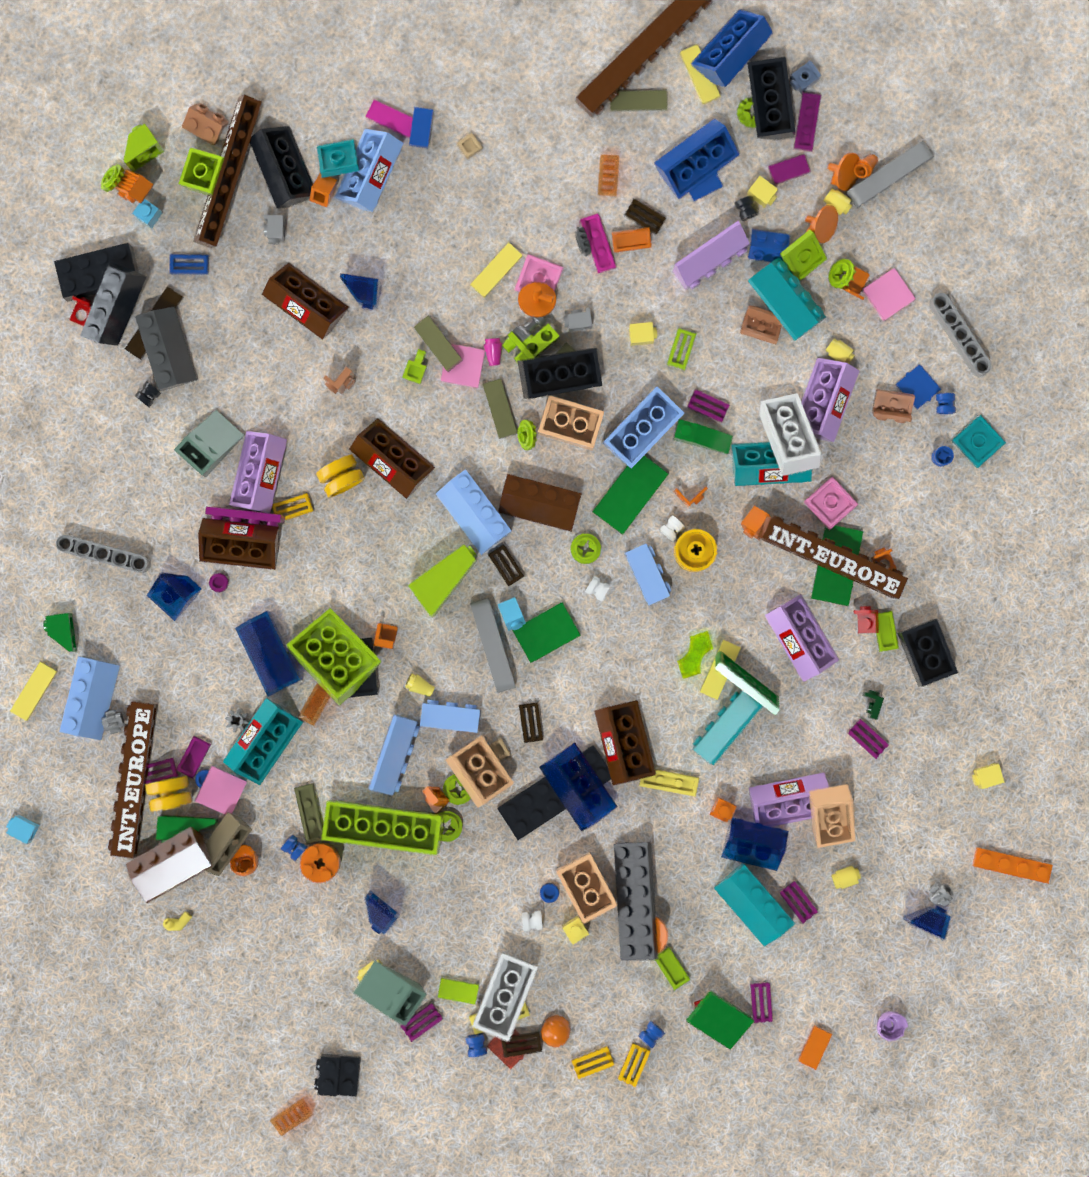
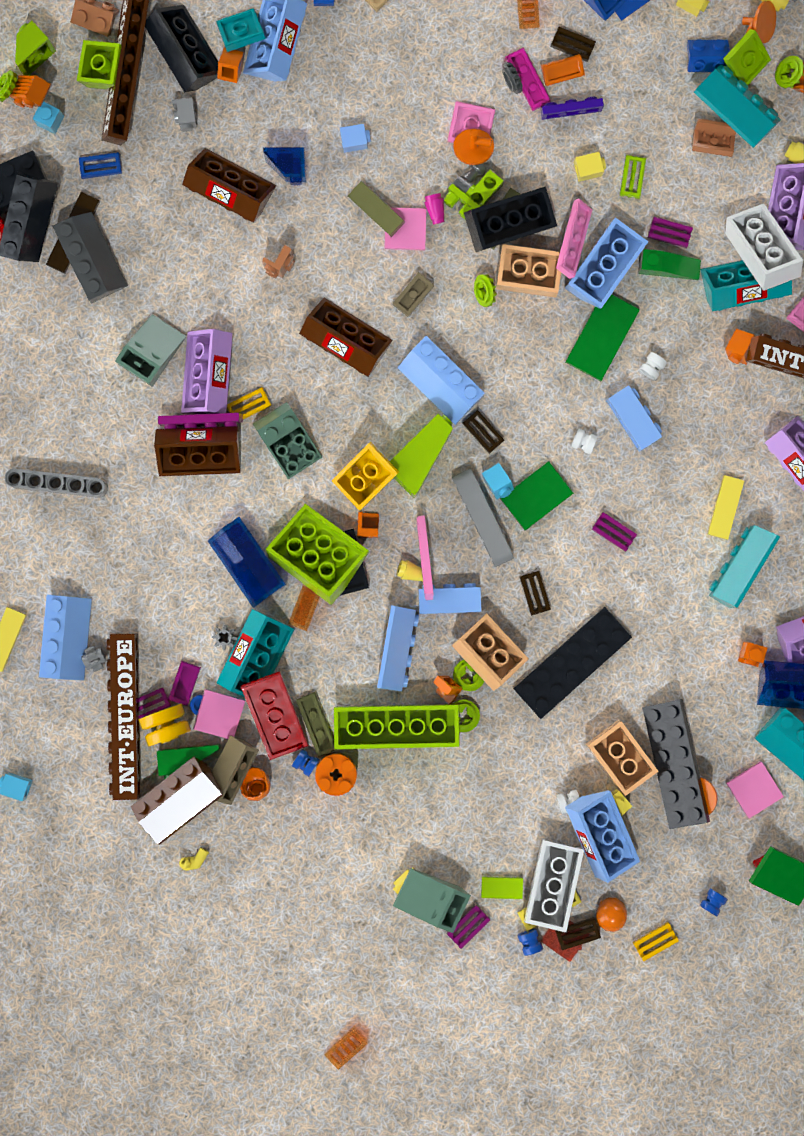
camera: 10 degrees left, 0 degrees up
(61, 629) = (24, 570): green slope -> none
(147, 394) = (78, 308): black wheel -> none
(173, 593) = (137, 513): clear blue slope -> none
(218, 582) = (183, 495): magenta tile -> none
(271, 800) = (274, 715): none -> red tile
(322, 546) = (287, 440): none -> sand green slope
(337, 1075) = (388, 996): black plate -> none
(340, 475) = (295, 362): yellow wheel -> none
(380, 913) = (408, 819): clear blue slope -> none
(388, 592) = (365, 476): none -> yellow slope
(414, 369) = (356, 240): lime plate -> none
(428, 274) = (354, 138): none -> light blue brick
(432, 678) = (425, 559): none -> bright pink tile
(460, 428) = (413, 295): none -> dark tan plate
(496, 270) = (425, 123): light yellow tile -> none
(499, 408) = (451, 268): olive tile -> none
(499, 749) = (507, 625): tan tile -> none
(539, 502) = (509, 360): reddish brown slope -> none
(549, 893) = (582, 769): blue tile -> none
(557, 956) = (602, 835): none -> light blue slope
(578, 320) = (520, 162): light grey brick -> none
(578, 787) = (596, 652): clear blue slope -> none
(594, 545) = (572, 396): lime gear -> none
(616, 399) = (574, 238): none -> bright pink tile
(625, 687) = (628, 540): none -> magenta tile
(625, 742) = (638, 598): reddish brown slope -> none
(627, 1080) = (702, 956): yellow tile -> none
(634, 276) = (571, 108): none -> dark purple plate
(671, 782) = (690, 633): light yellow tile -> none
(672, 968) = (724, 830): lime tile -> none
(691, 662) = (699, 486): clear neon green tile -> none
(695, 539) = (689, 376): yellow wheel -> none
(696, 499) = (662, 335): orange bracket -> none
(706, 936) = (754, 789): none -> bright pink tile
(711, 256) = (650, 73): lavender slope -> none
(746, 208) = (678, 18): black wheel -> none
(747, 682) = (758, 515): green tile -> none

